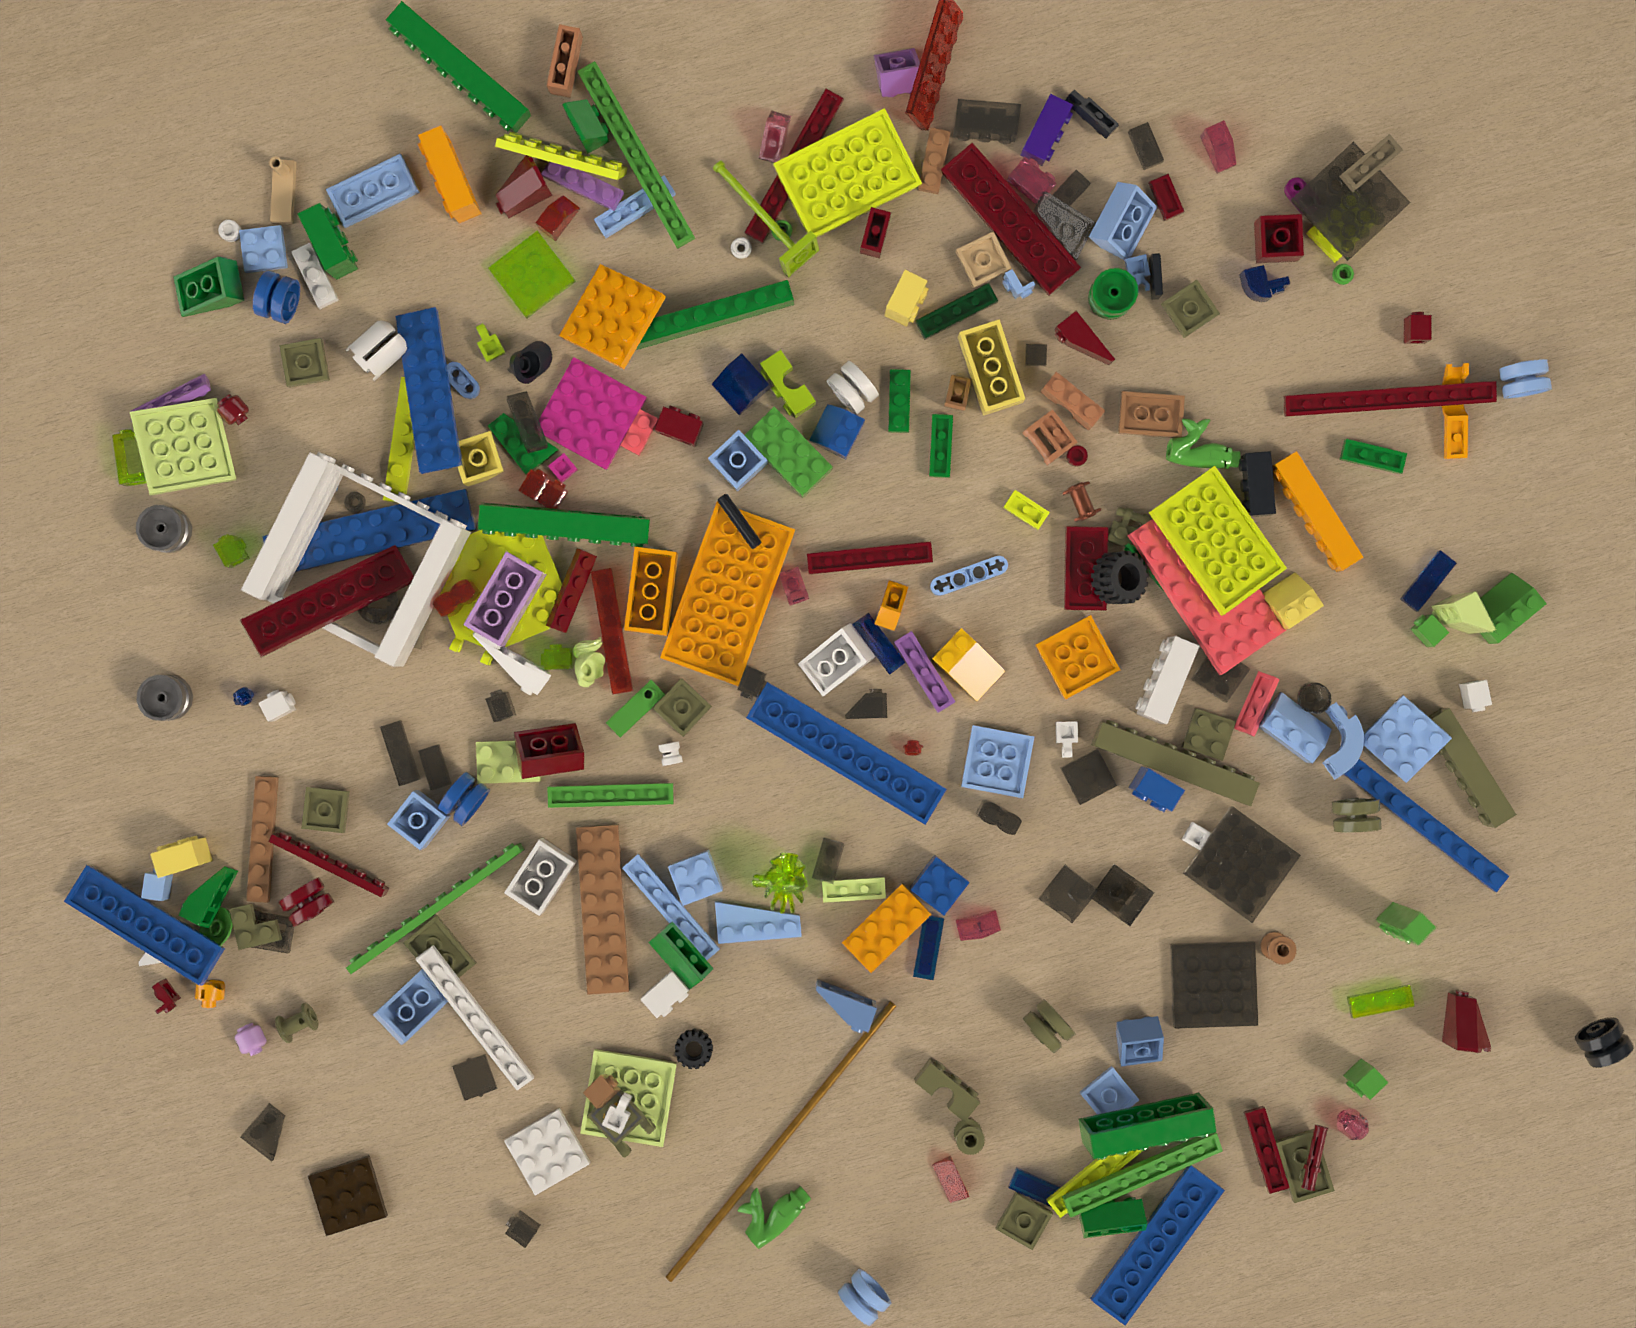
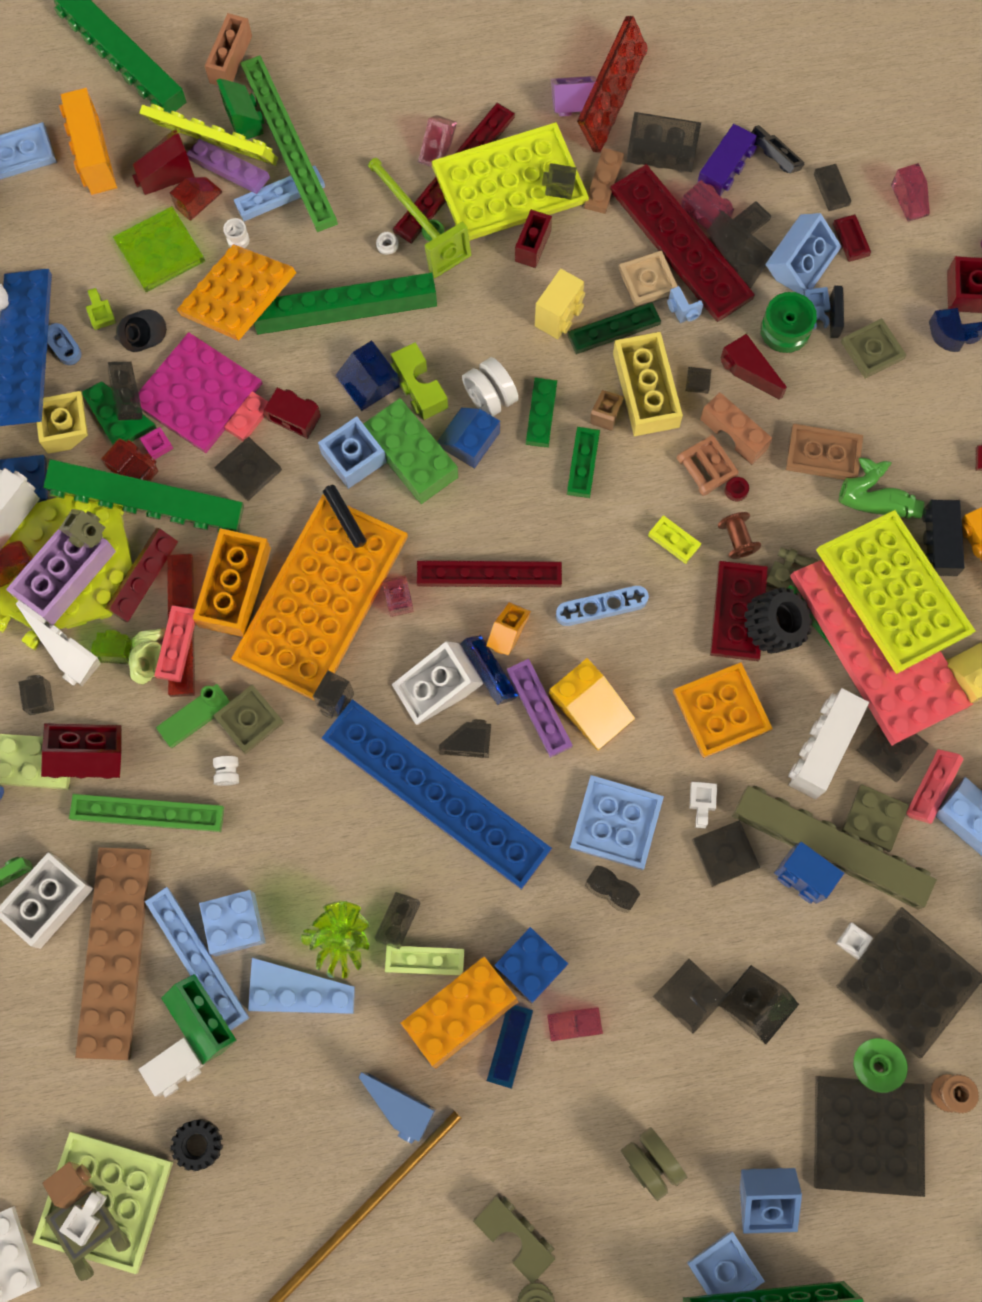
camera: 10 degrees right, 15 degrees down
(521, 568) = (82, 528): none -> olive brick
(601, 249) = (236, 233): none -> white wheel
(612, 651) = (175, 644): none -> coral plate
(647, 481) = (248, 468): none -> clear smoke plate
(894, 173) = (559, 181): none -> clear smoke brick
(912, 748) = (516, 796): clear red plate -> none
(1230, 930) = (889, 1057): none -> bright green dish

